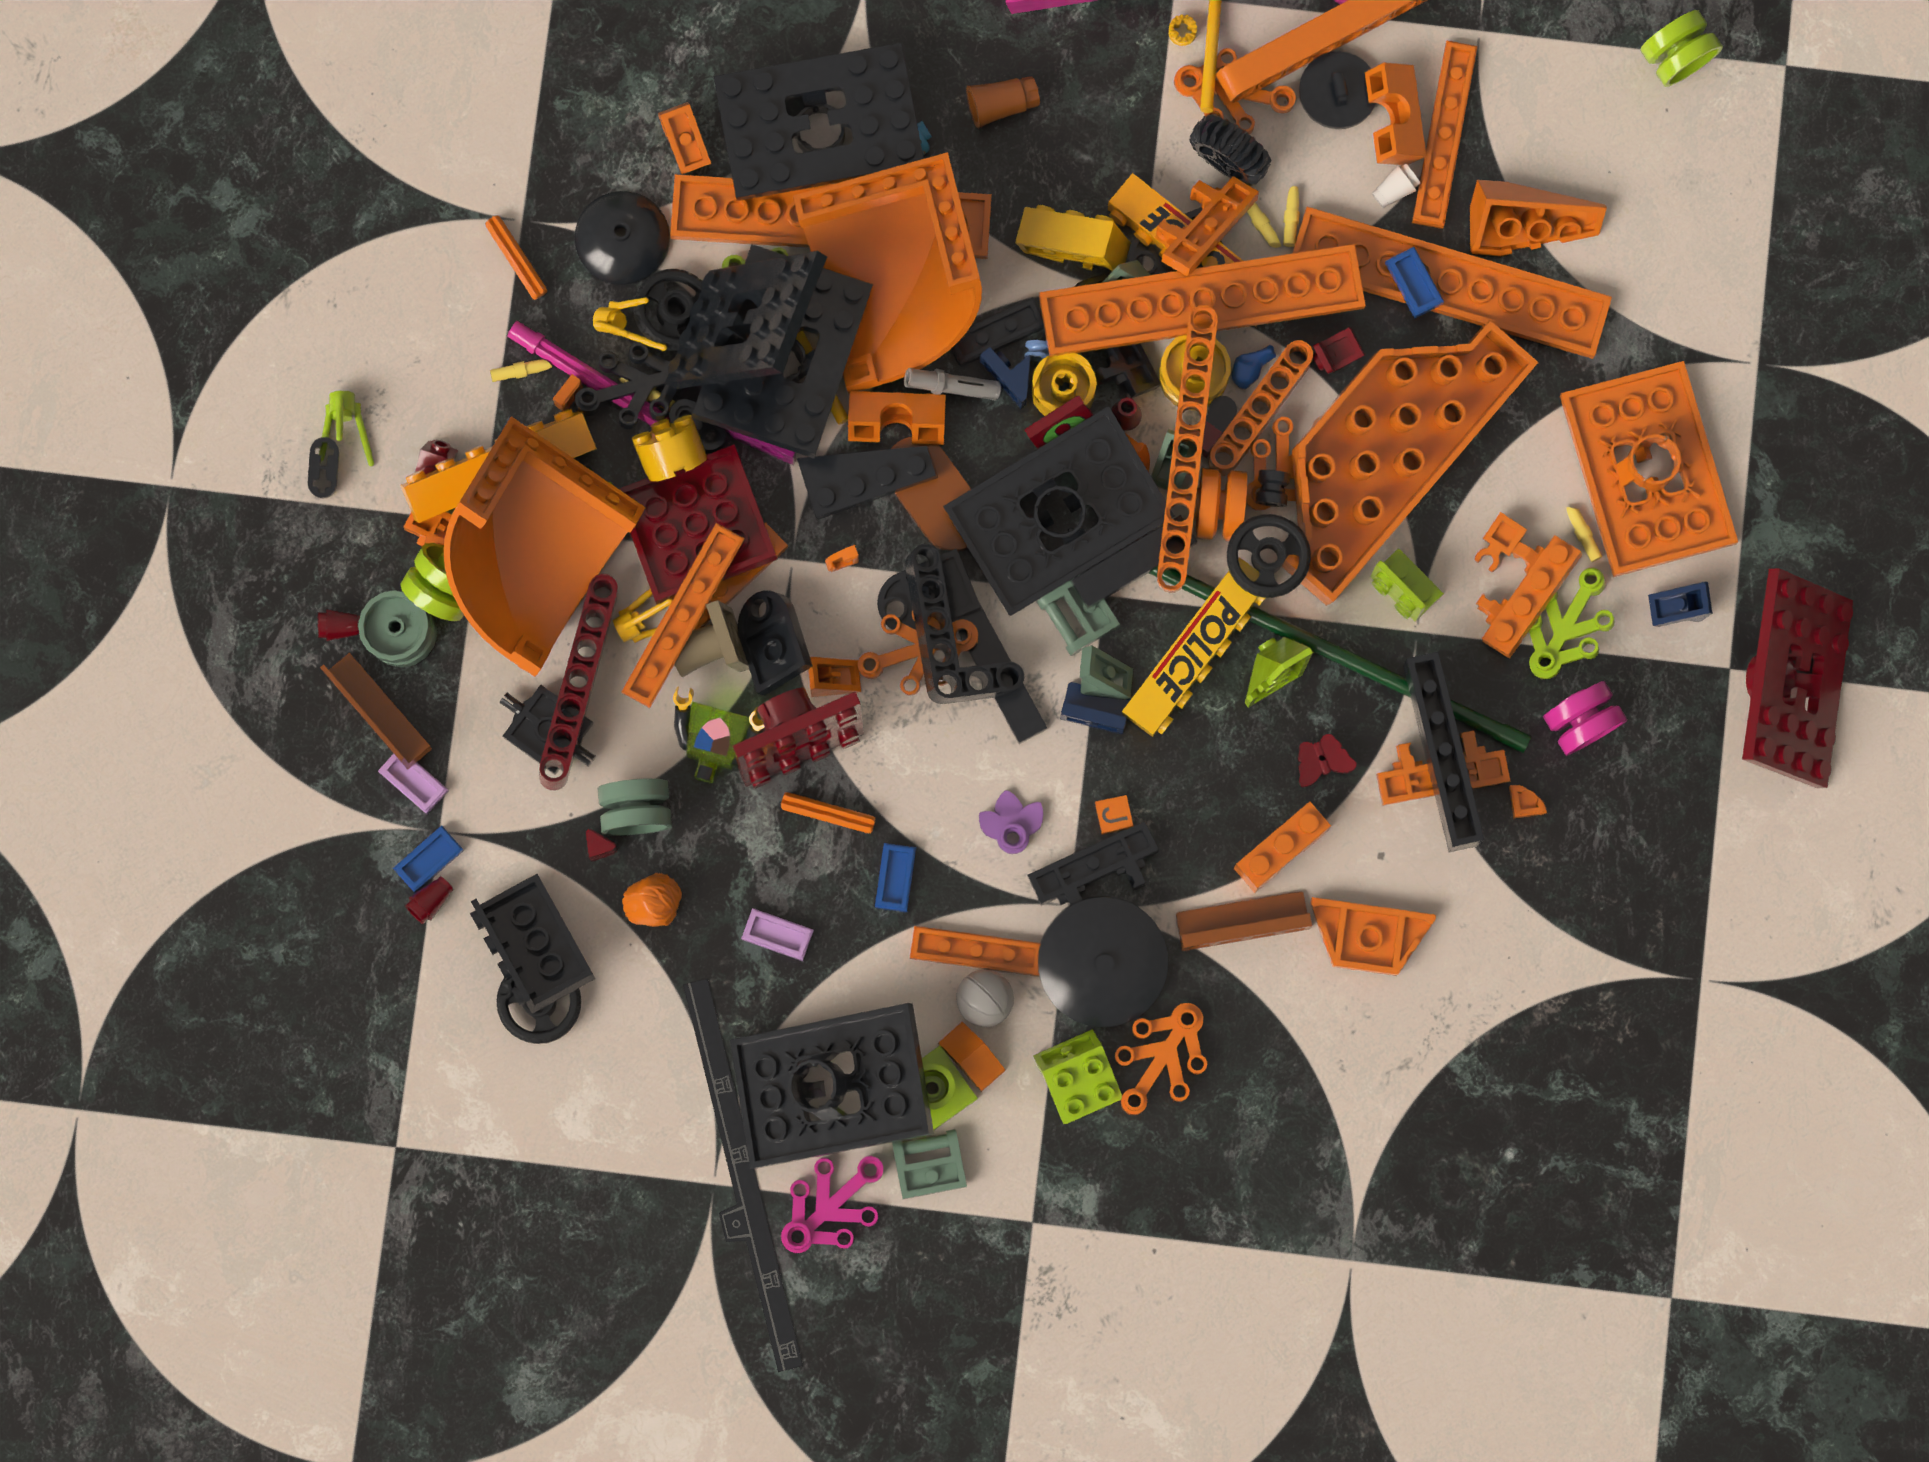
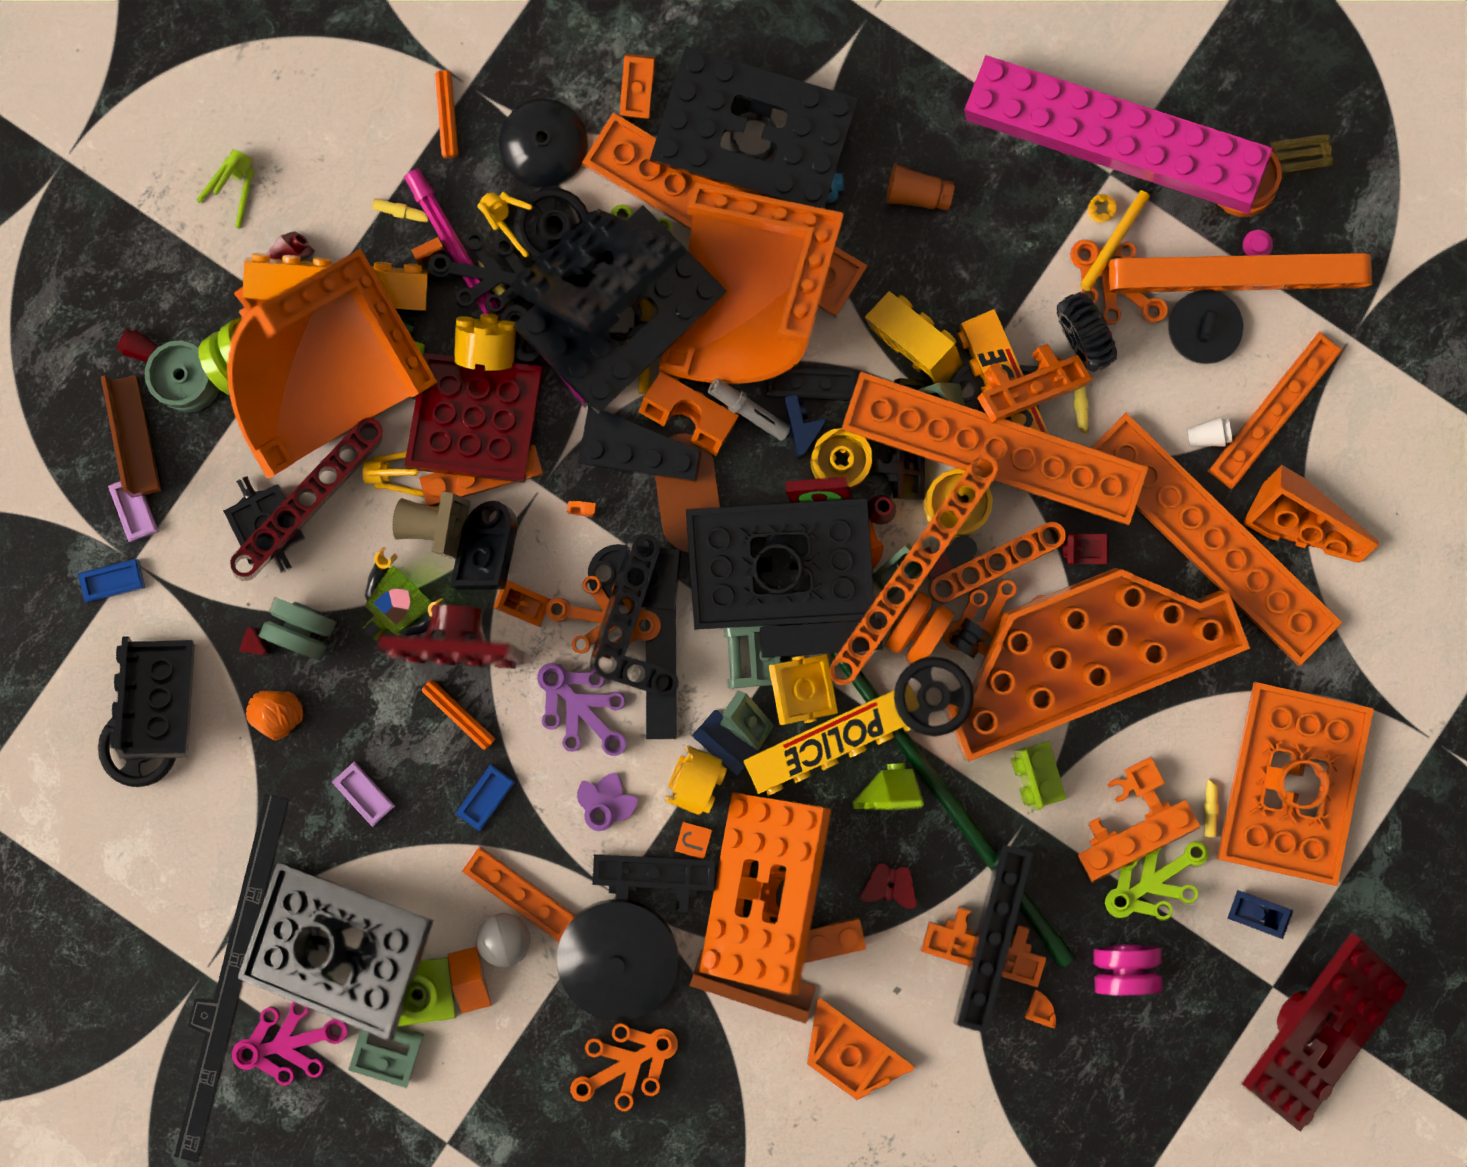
camera: 25 degrees right, 5 degrees up
(315, 467) = (188, 205): black beam -> none
(428, 900) = (93, 615): dark red cone -> none
(682, 615) = (419, 490): orange tile -> none
(937, 745) = (578, 706): none -> medium lavender plant
(1037, 349) = (835, 417): medium blue bush -> none
(1078, 1076) = (547, 1043): lime bracket -> none
(1086, 754) = (695, 780): none -> yellow brick
(1142, 617) = (803, 689): none -> yellow plate
(1234, 869) = (753, 947): none -> orange plate
(1249, 365) = (1005, 522): blue animal -> none
(1291, 217) = (1108, 414): light yellow piece -> none
(1396, 90) = (1254, 353): orange arch -> none
(1414, 282) = (1182, 524): blue tile -> none

